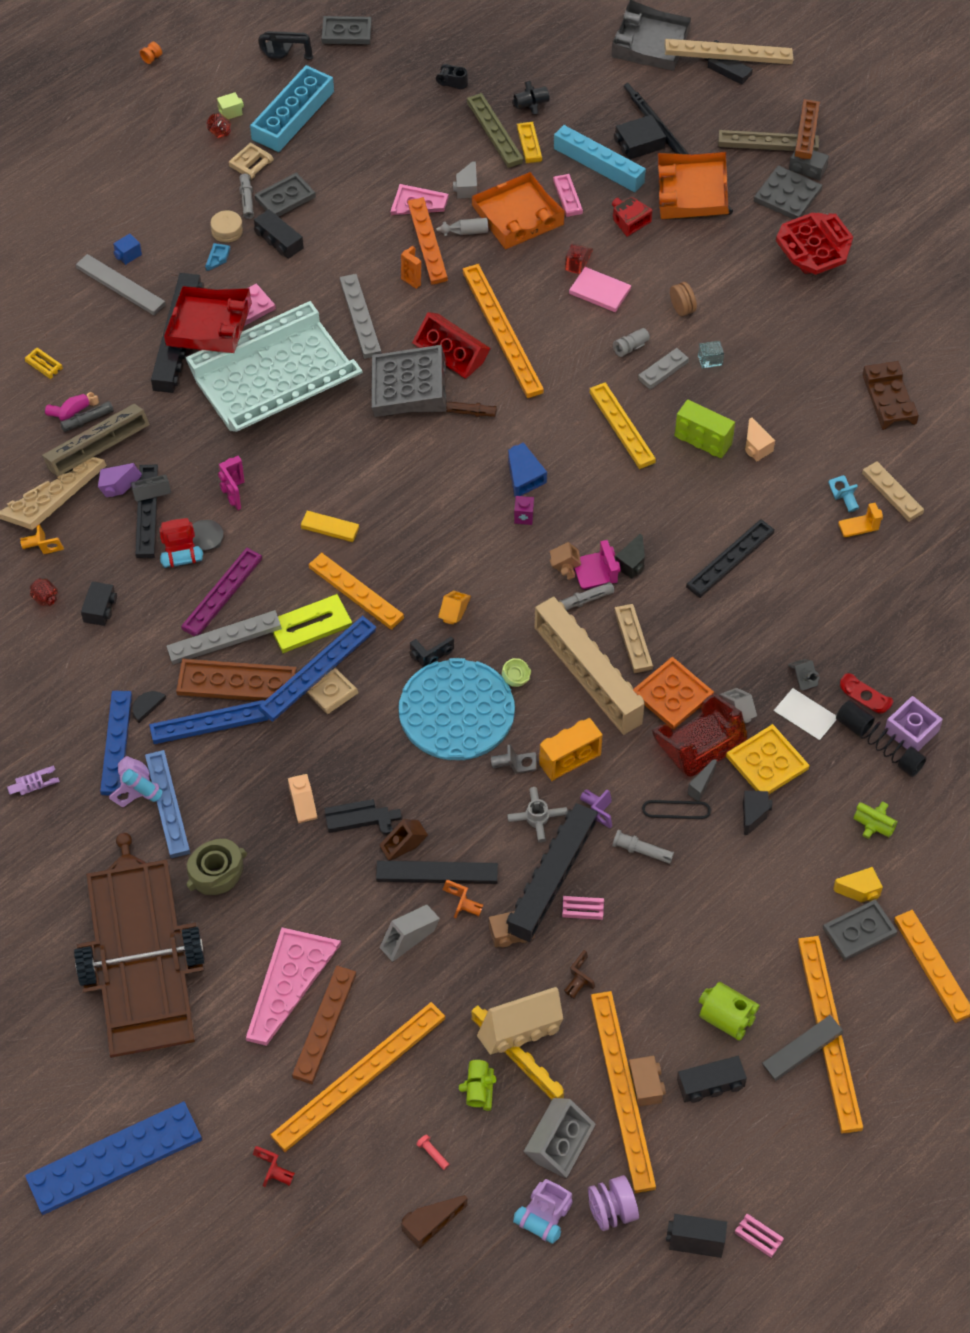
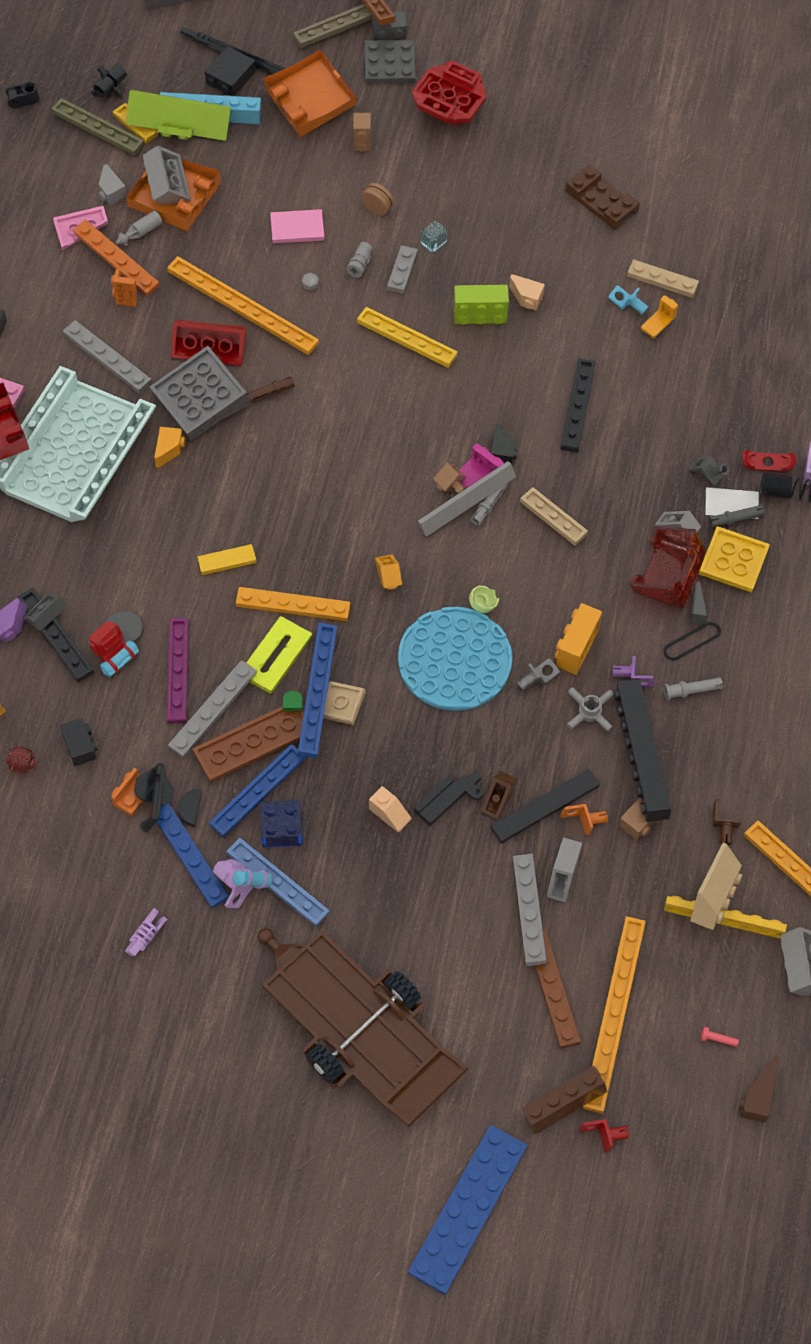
camera: 35 degrees left, 5 degrees up
(109, 666) = (124, 795): none -> orange bracket
(126, 672) = (157, 790): none -> black piece
(205, 758) = (281, 823): none -> clear blue brick
(212, 855) = (368, 896): olive piece -> none
(231, 475) = (112, 569): dark pink bracket -> none
(256, 1117) = (564, 1099): none -> reddish brown brick
(289, 665) = (292, 701): none -> green tile
(292, 970) = (493, 959): bright pink wing -> none
(352, 410) = (168, 445): none -> light orange slope
(353, 947) = (529, 910): none -> light grey plate
(426, 657) = (393, 628): black bracket -> none
(479, 1085) = (715, 960): lime pin -> none
(516, 194) = (166, 176): none -> light grey slope
(524, 510) = (383, 455): magenta brick -> none
(525, 470) = (355, 419): blue slope -> none
(564, 151) = (177, 116): none -> lime bracket
(566, 582) = (466, 499): none -> light grey tile
(567, 195) = (204, 154): bright pink tile -> none
(575, 339) = (310, 281): none -> light grey tile
(577, 258) = (258, 208): clear red slope -> none
(583, 904) = (695, 757): bright pink tile -> none
(589, 665) = (539, 559): tan brick -> none
(631, 215) = (274, 146): red torso -> none
(673, 692) = (619, 544): orange plate -> none
(712, 237) = (362, 131): none -> medium nougat brick
(755, 809) = (754, 605): black slope -> none
(798, 725) = (735, 516): none -> dark grey pin

